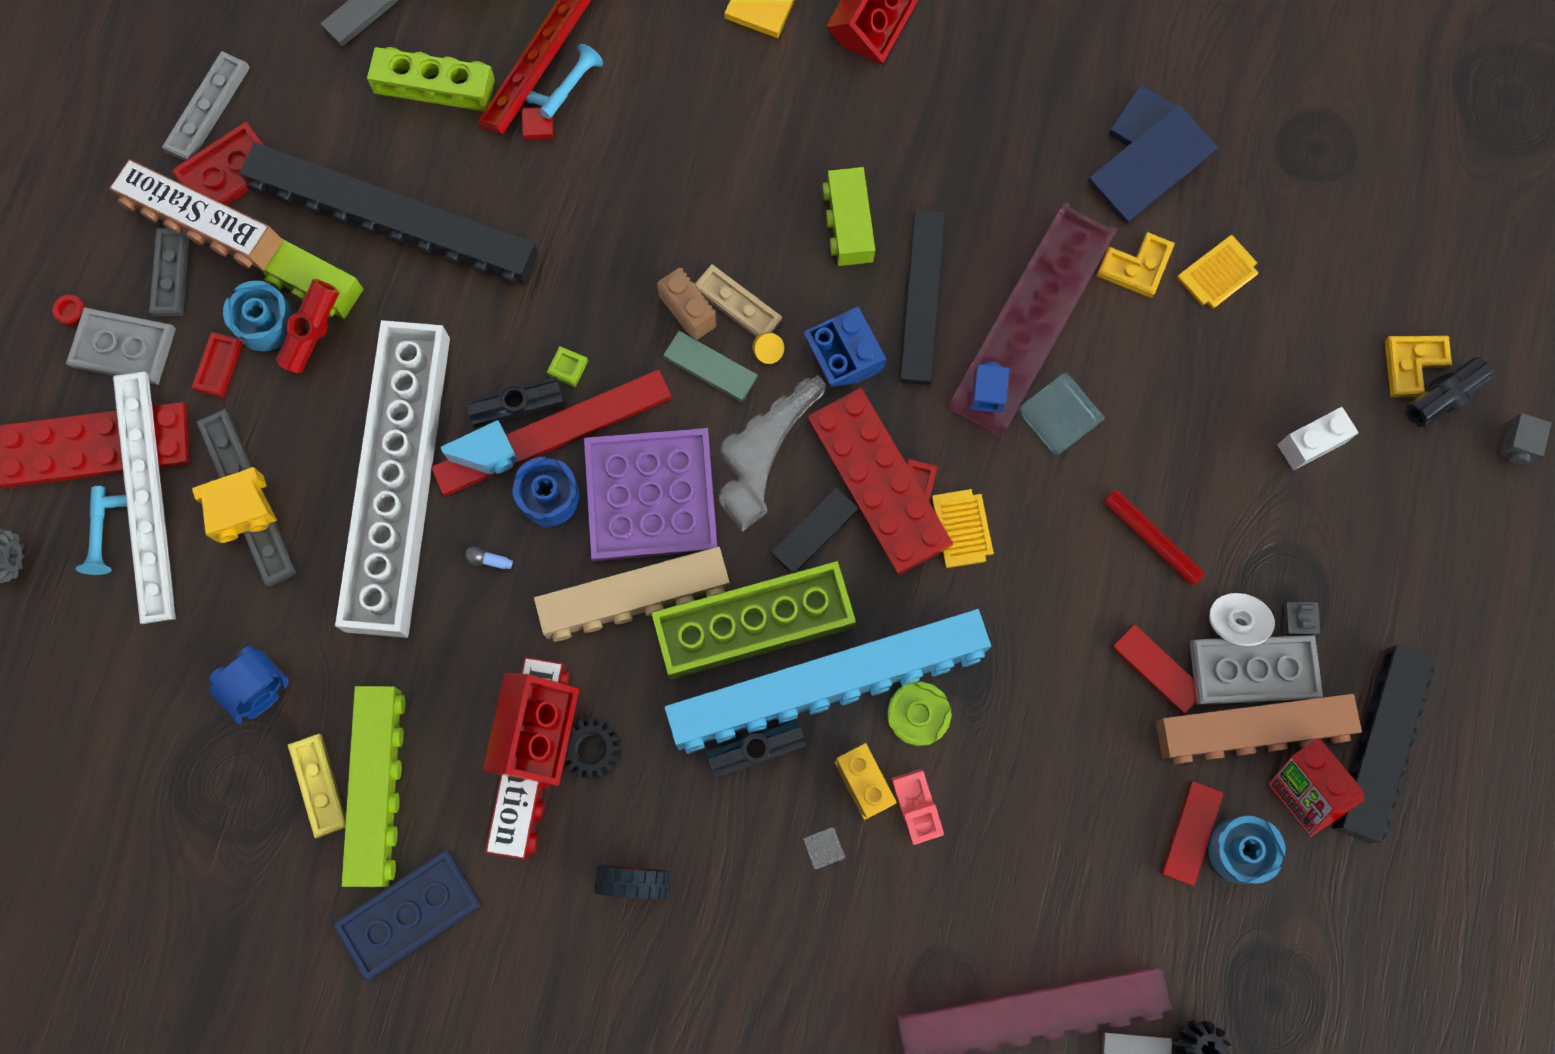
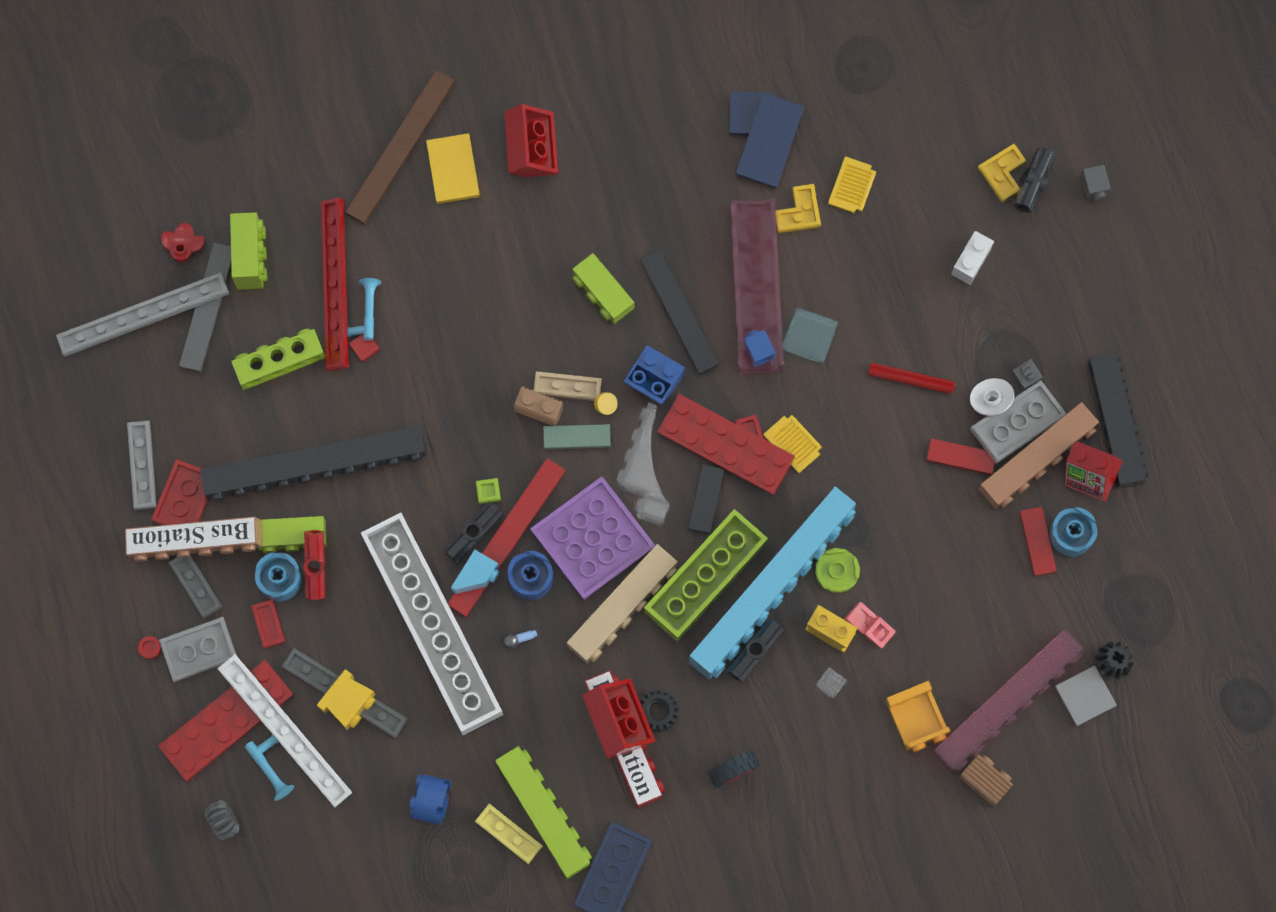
camera: 30 degrees left, 0 degrees up
(904, 962) = (917, 717): none -> light orange panel

